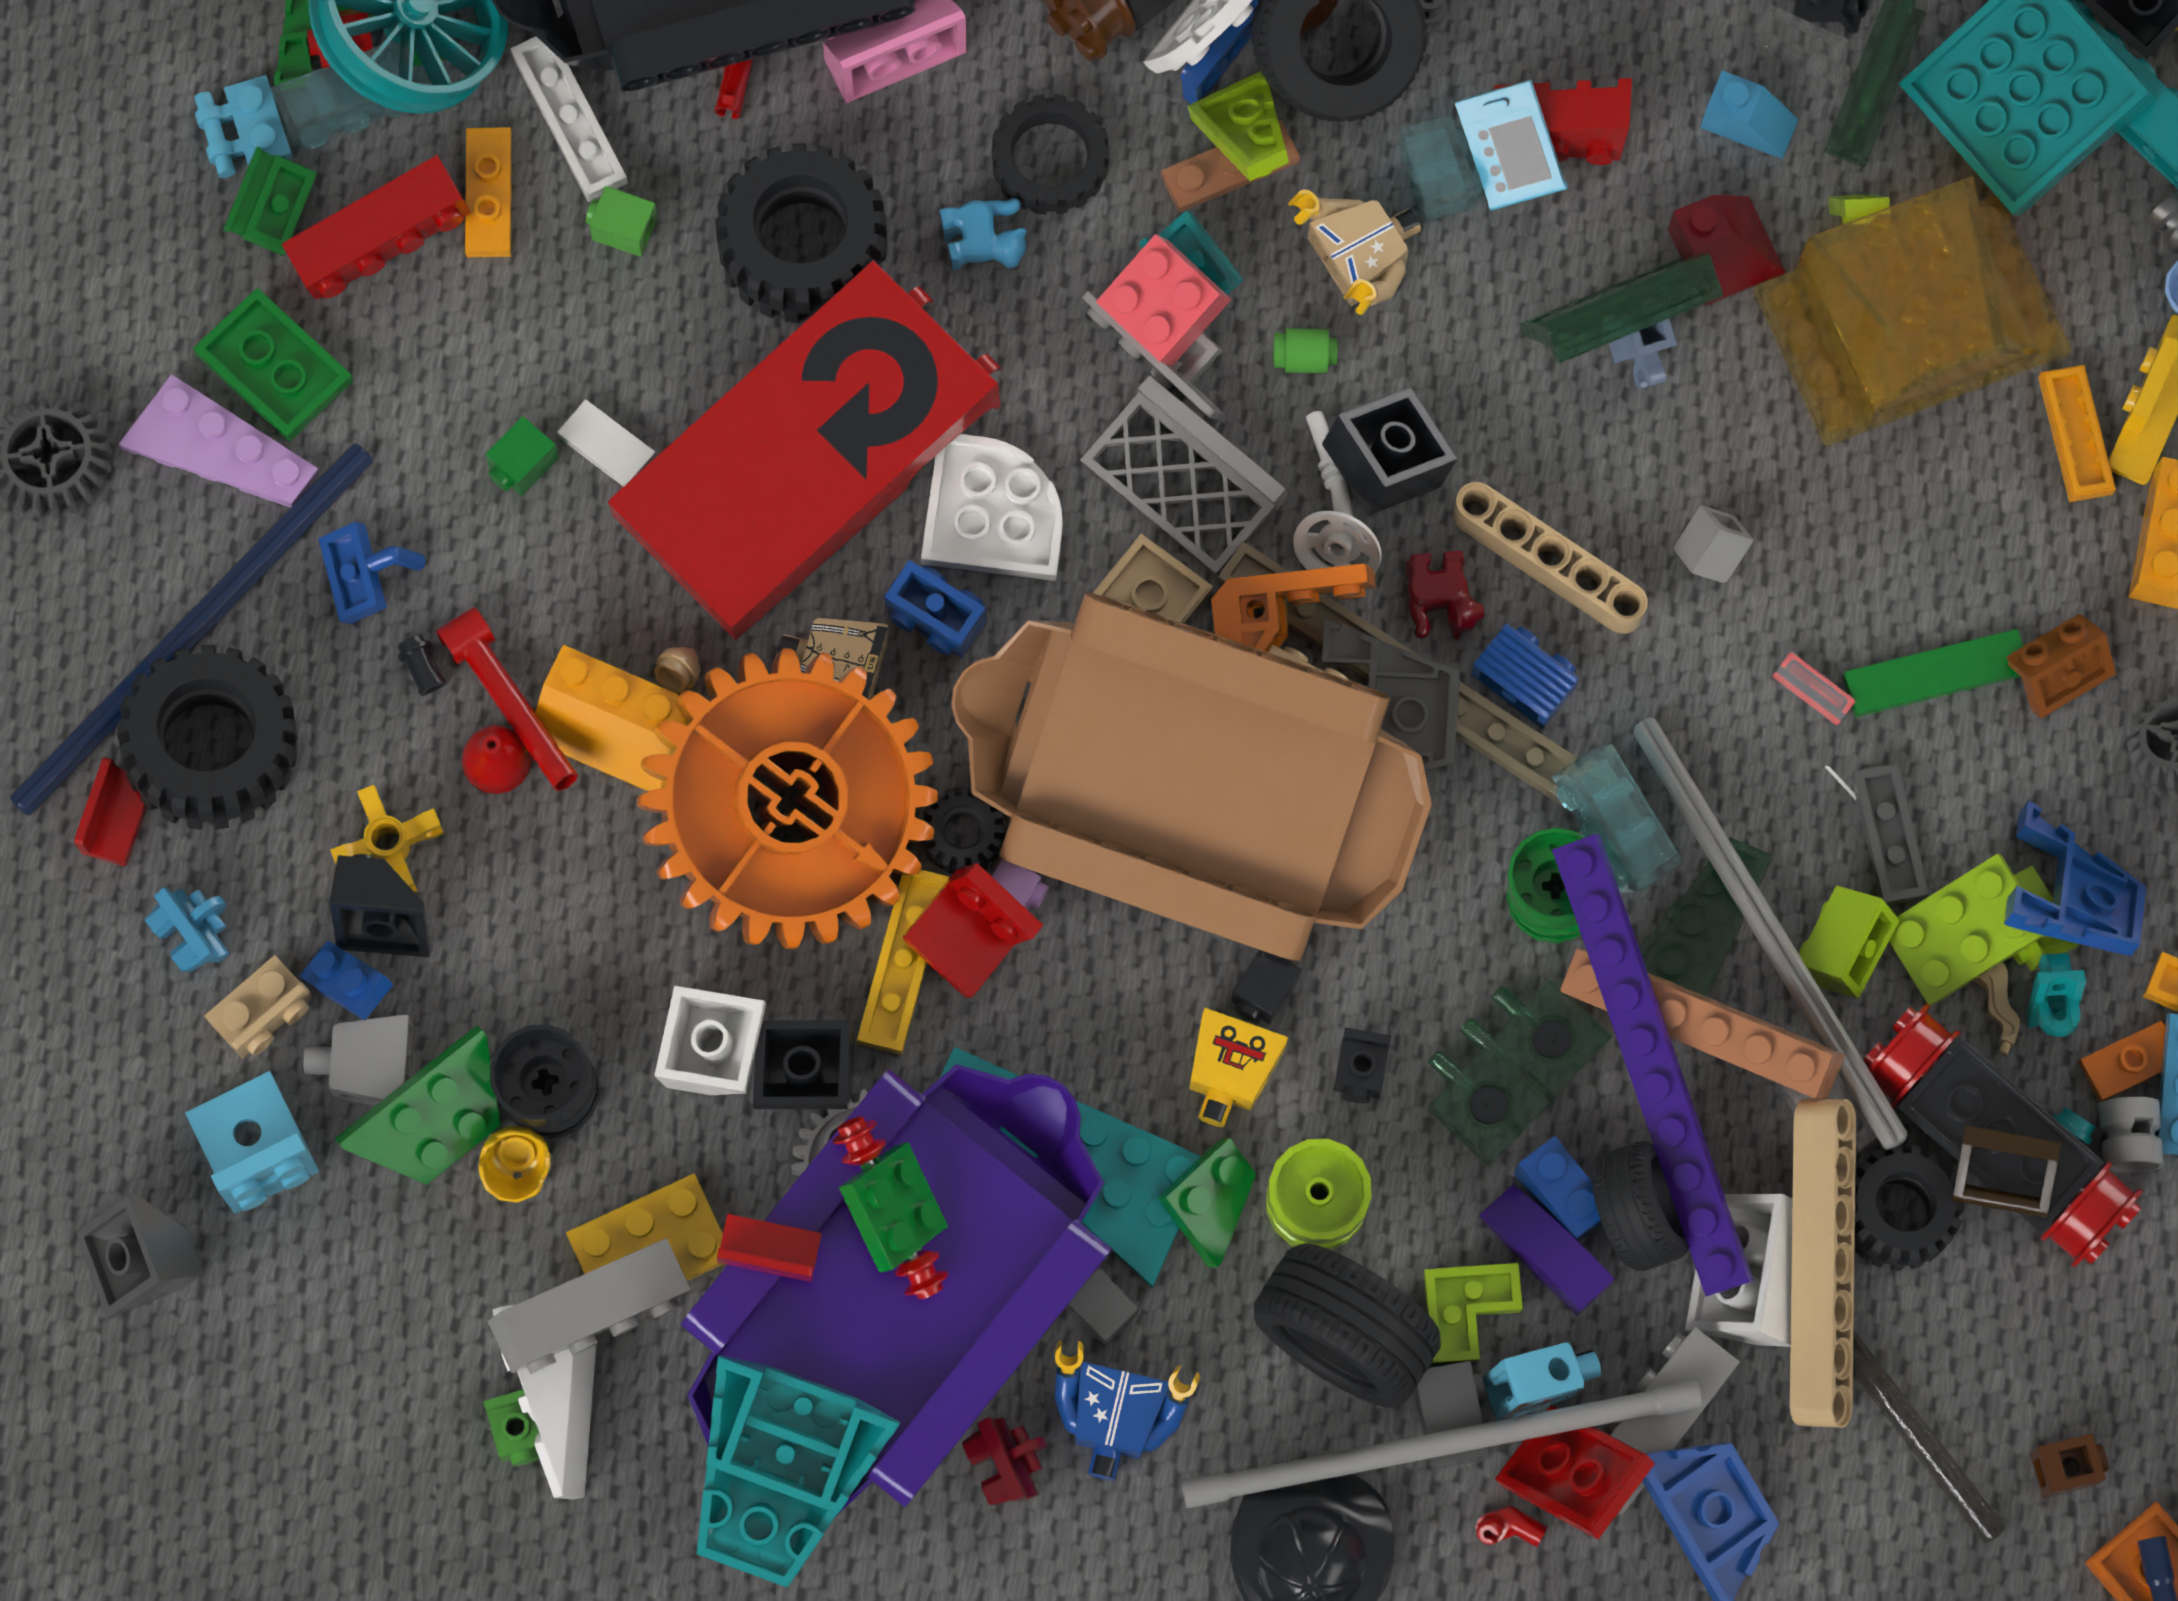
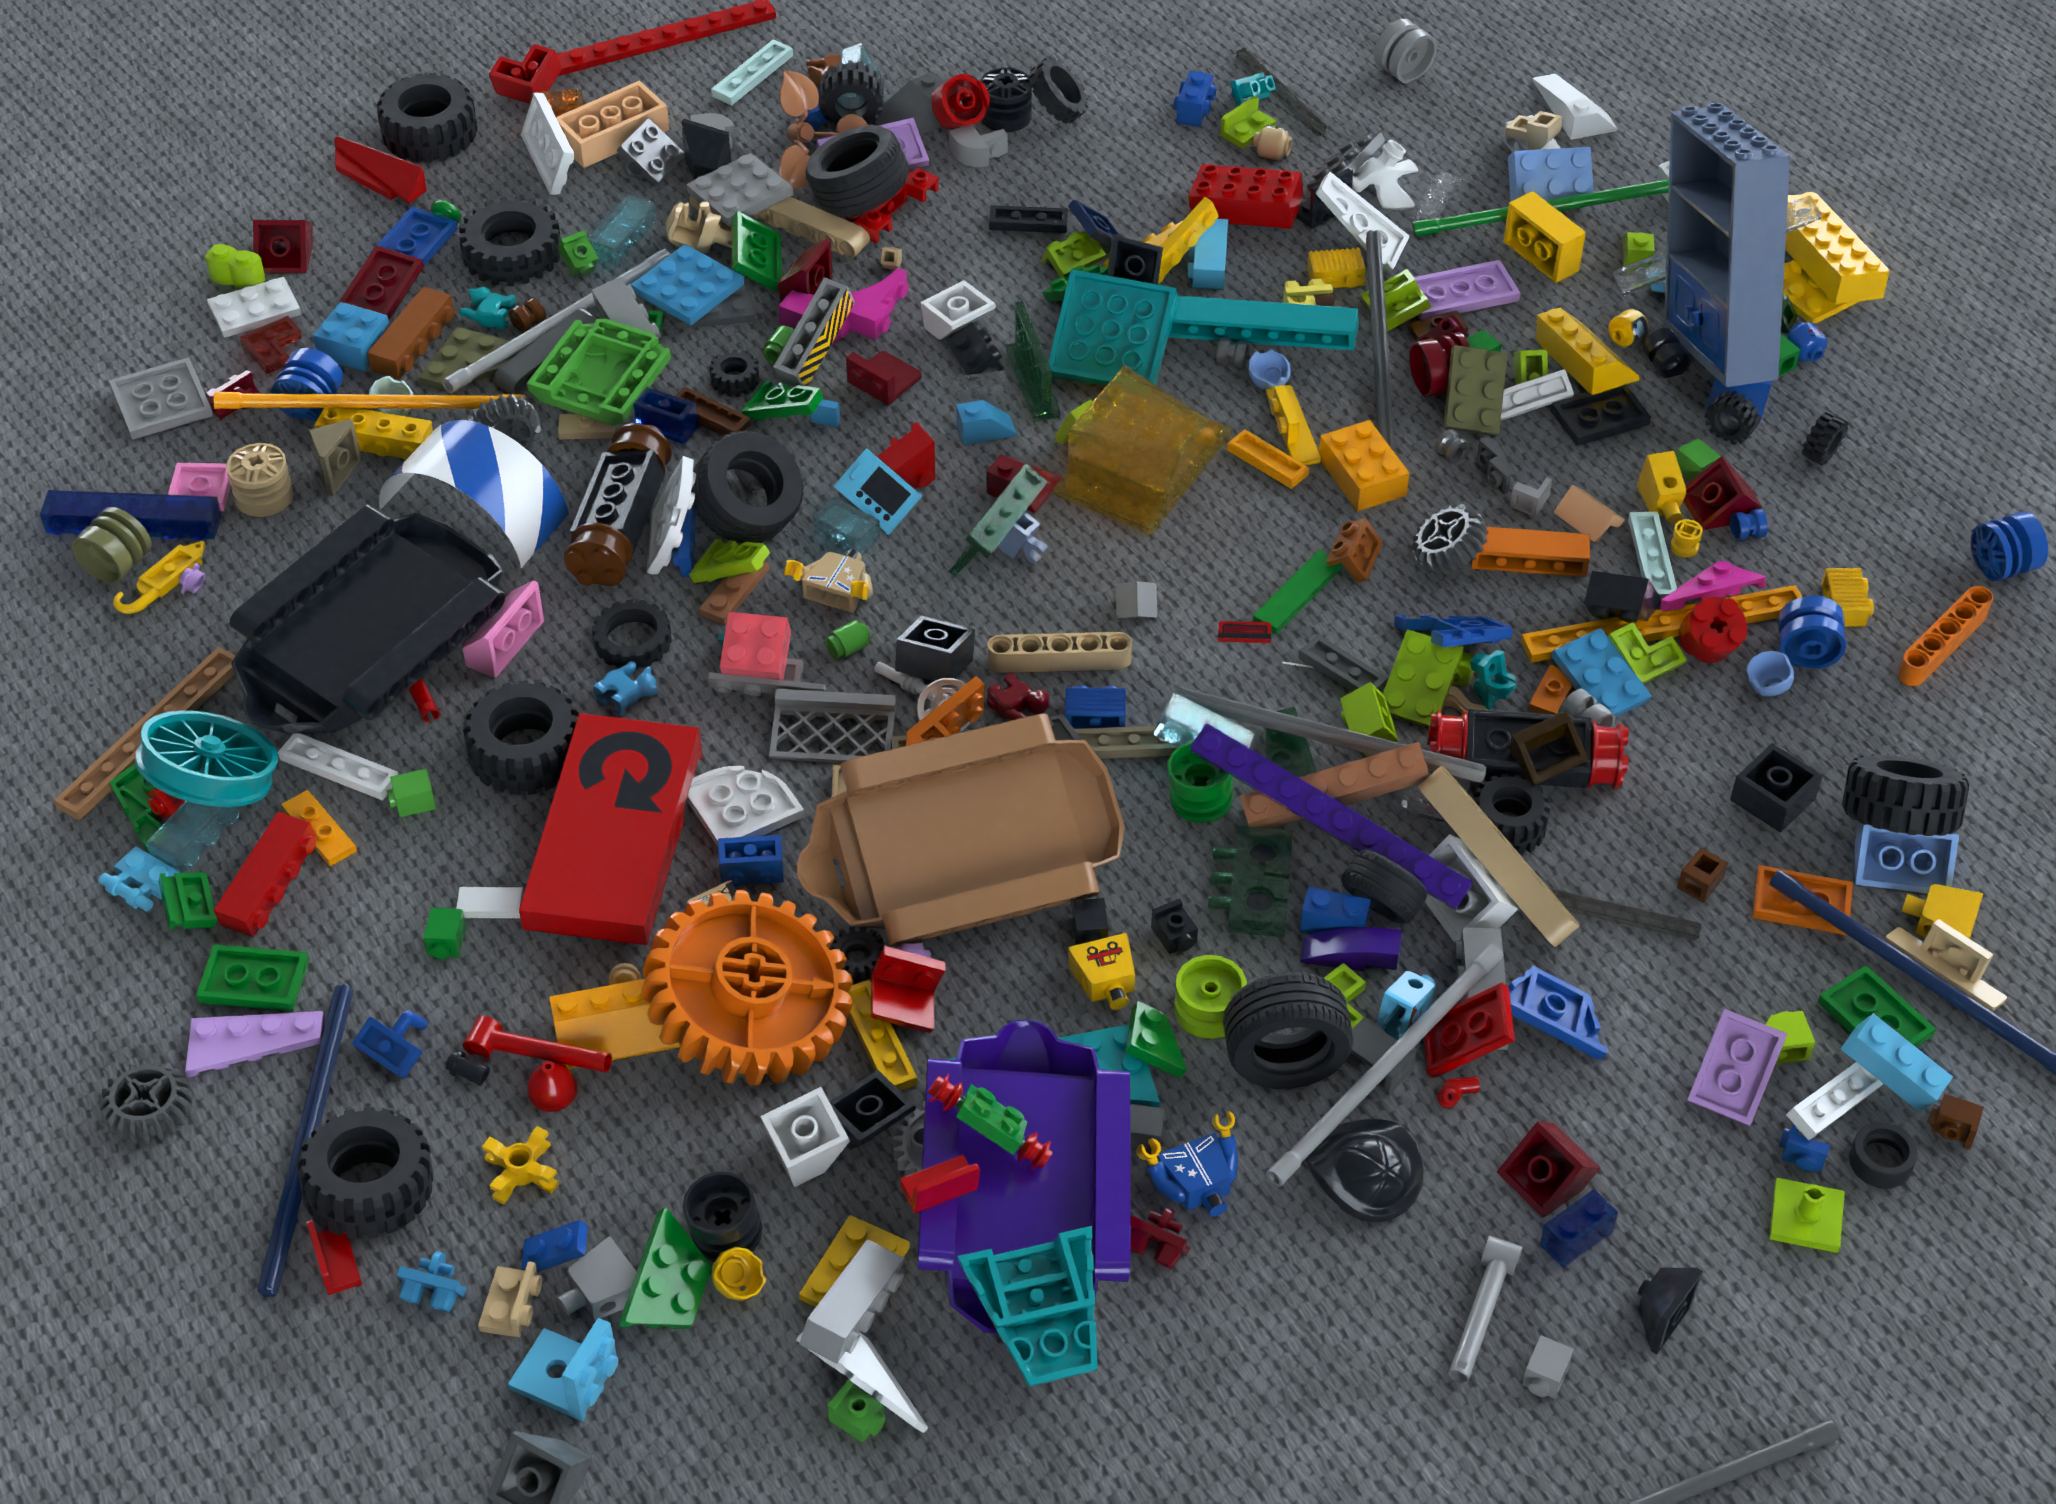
camera: 35 degrees left, 25 degrees down
(376, 909) = (547, 1193): black slope -> none

